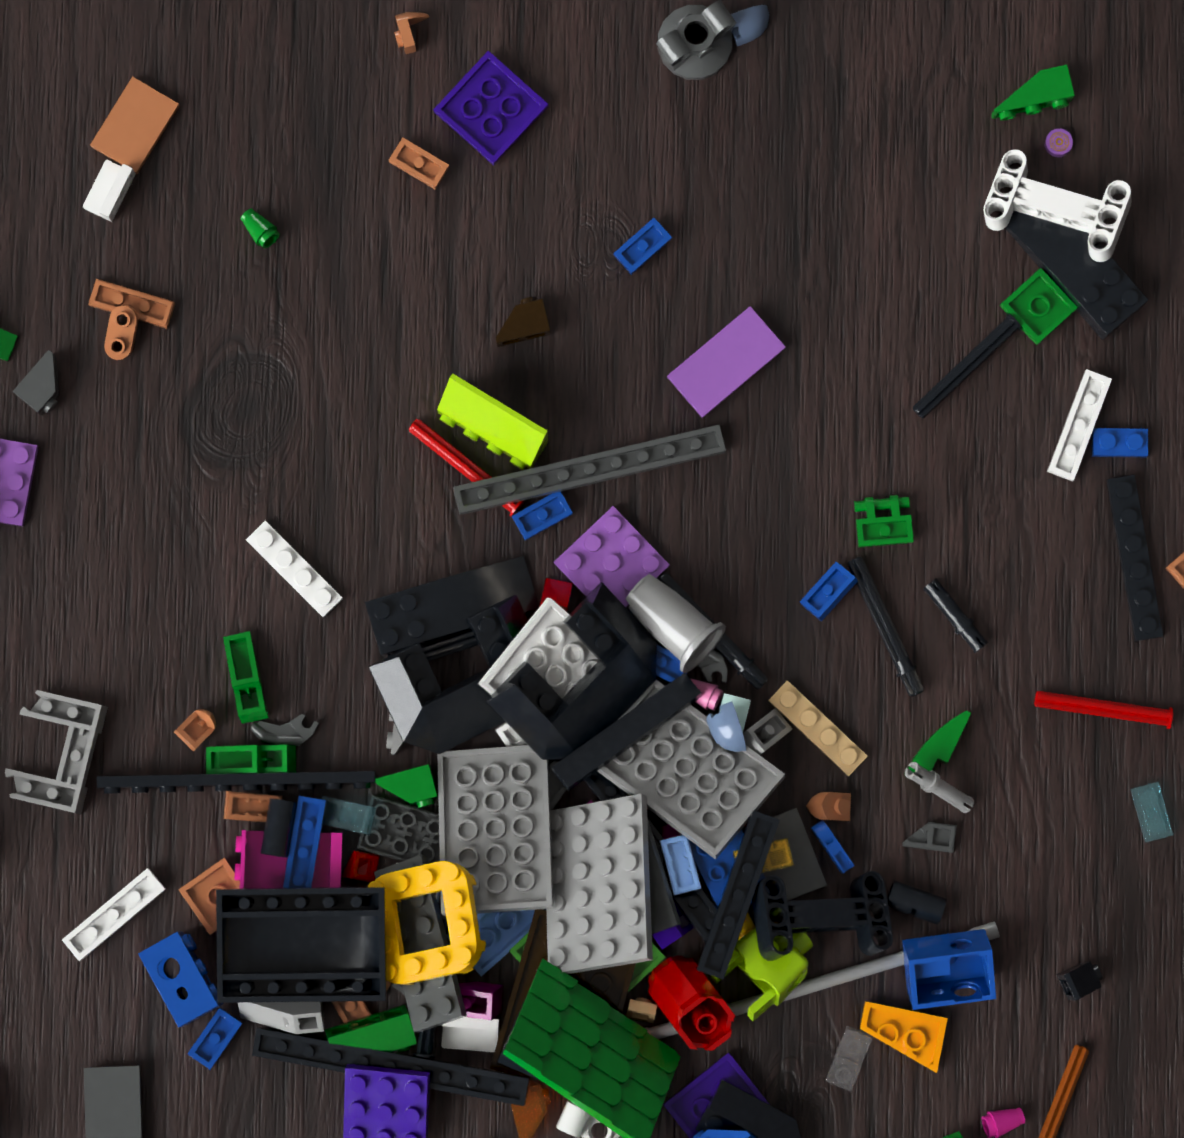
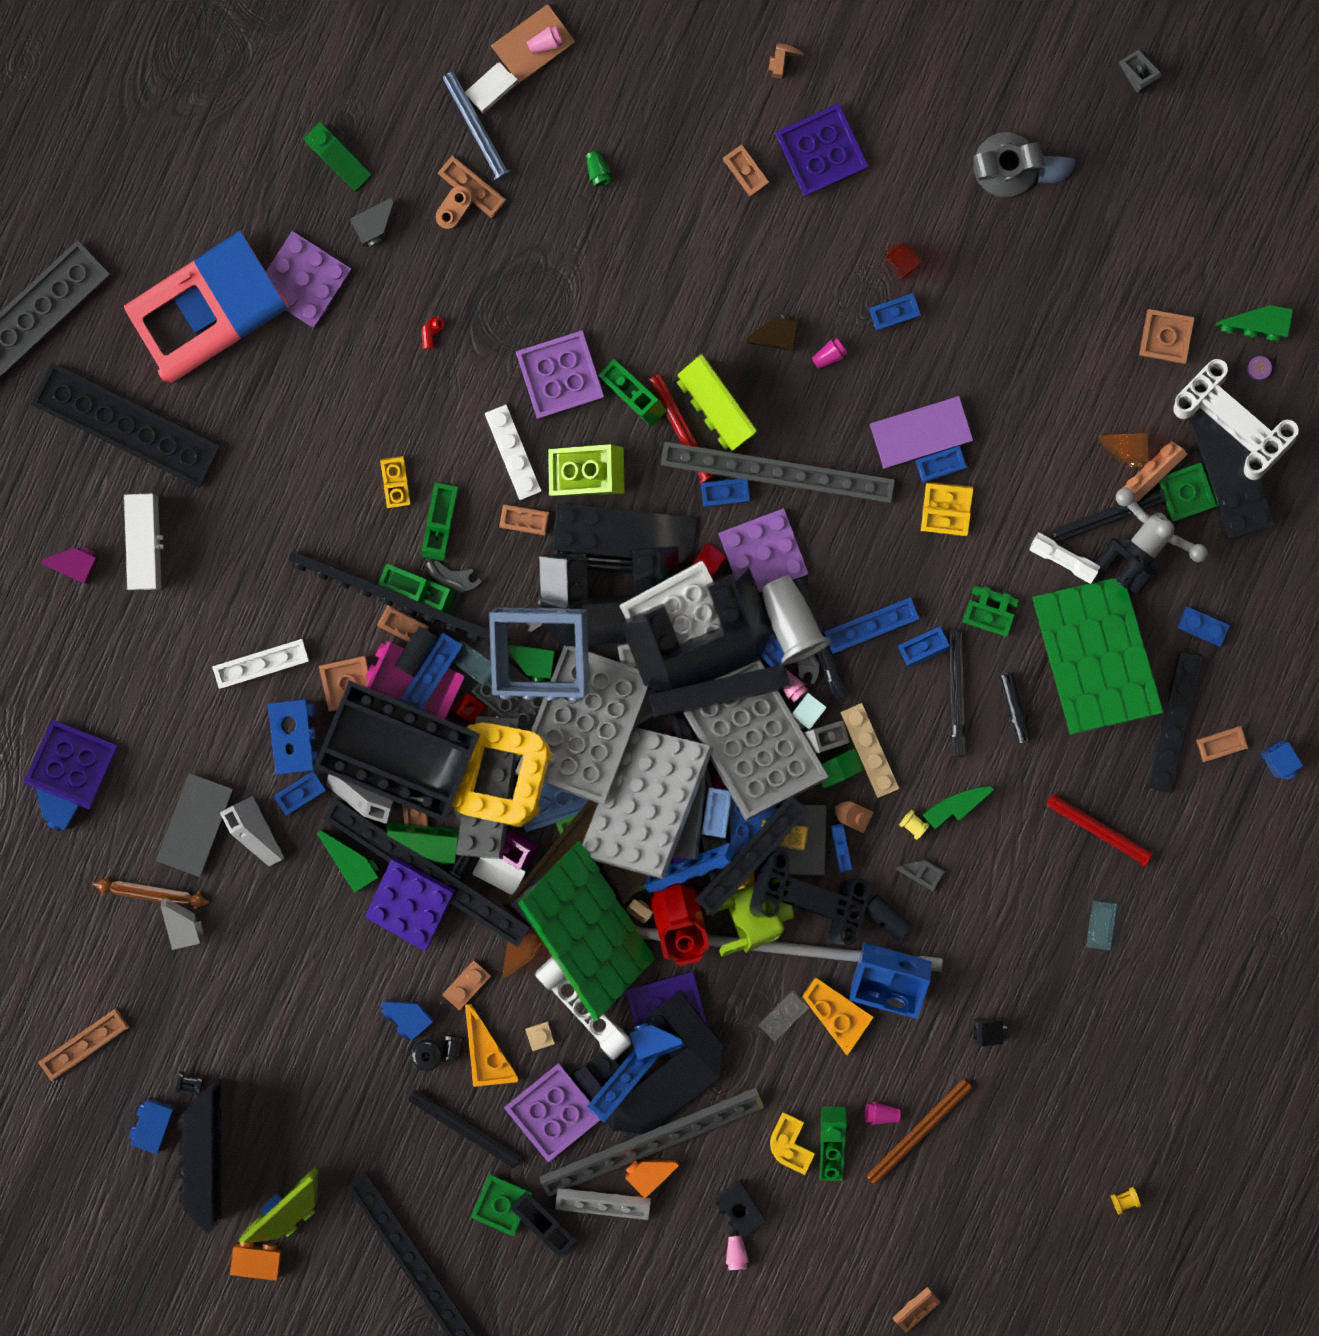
camera: 25 degrees right, 5 degrees up
(84, 724) = (265, 551): light grey wedge -> none
(109, 237) = (476, 126): none -> sand blue axle
(146, 114) = (545, 40): none -> bright pink cone
(150, 475) = (429, 330): none -> red arm
(176, 1100) = (250, 828): none -> light grey slope
(179, 654) = (395, 481): none -> yellow slope
(196, 728) = (384, 545): nougat plate -> none
(305, 1092) = (354, 865): none -> green slope
(310, 464) = (559, 374): none -> medium lavender plate
(337, 636) = (524, 520): none -> nougat plate
(382, 554) = (586, 470): none -> lime slope
(384, 821) = (501, 682): none -> sand blue piece
(397, 450) = (633, 393): none -> green slope
(592, 320) = (829, 354): none -> dark pink cone
(627, 187) = (902, 260): none -> clear red slope
(669, 945) = (688, 868): none -> blue plate
(727, 728) = (798, 722): sand blue brick -> none
(762, 387) = (941, 464): none -> blue plate
(762, 591) = (871, 625): none -> blue plate
(789, 432) = (946, 508): none -> yellow slope
(796, 759) = (842, 767): none -> green slope
(900, 788) = (914, 824): none -> light yellow bush
(919, 429) = (1051, 550): none -> white axle
(931, 782) = (940, 832): light grey pin -> none
(945, 150) = (1166, 336): none -> nougat plate
(954, 285) = (1127, 448): none -> clear orange slope
(994, 299) = (1155, 470): none -> nougat plate
(1019, 381) = (1144, 546): none -> wheel
(1019, 519) = (1096, 655): none -> green piece
(1079, 425) = (1177, 600): white plate -> none

